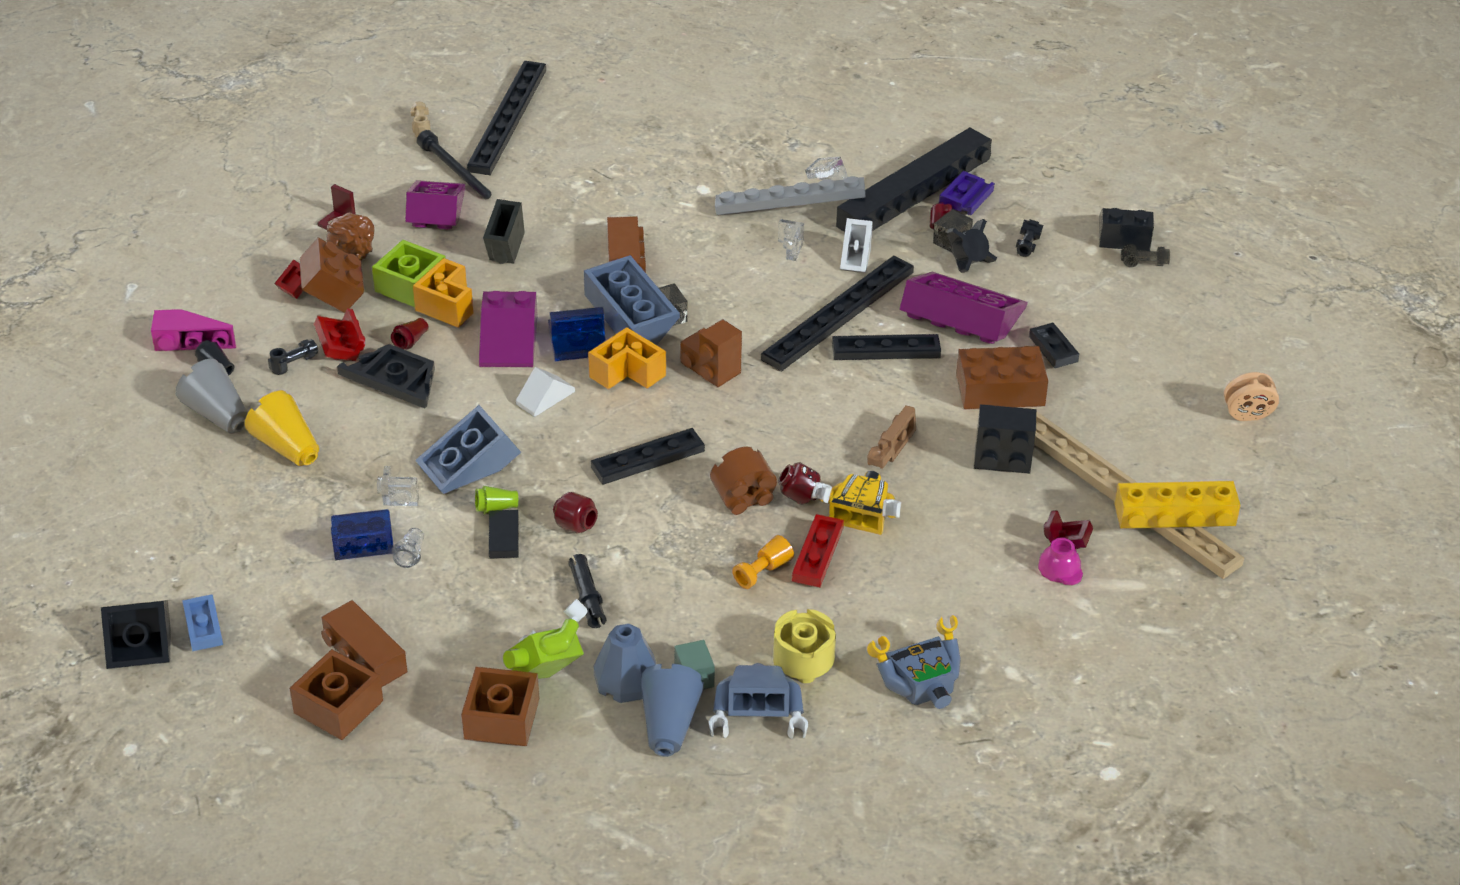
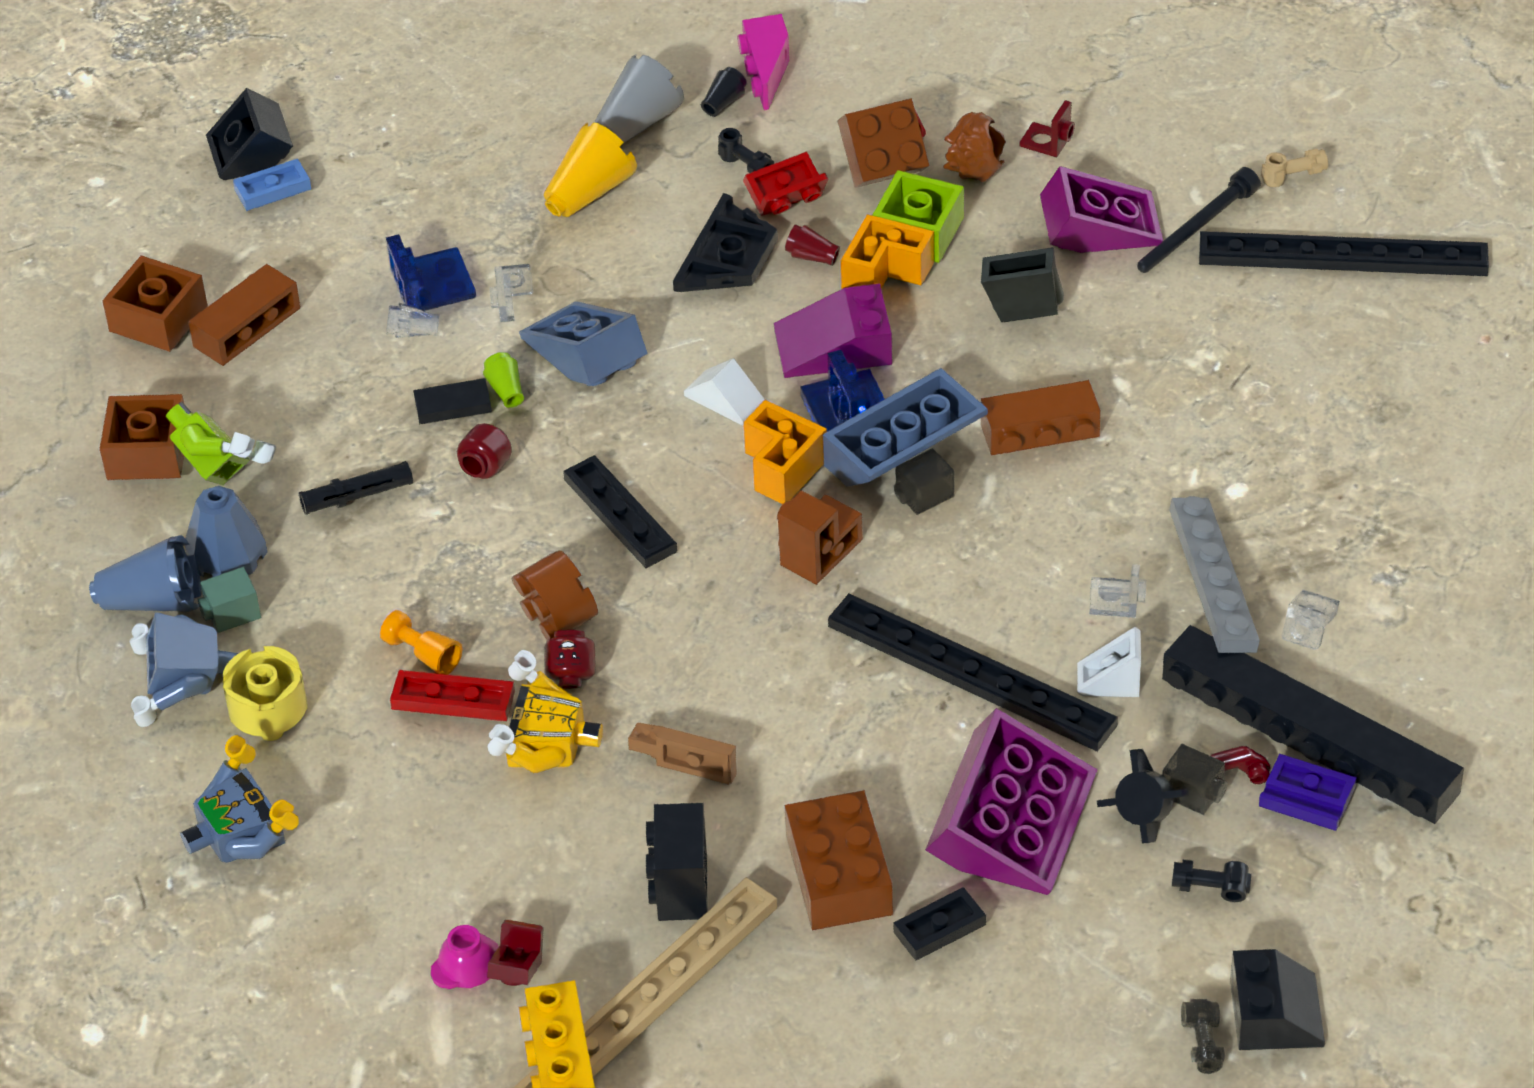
camera: 85 degrees right, 5 degrees up
(886, 347) = (901, 733): black tile -> none

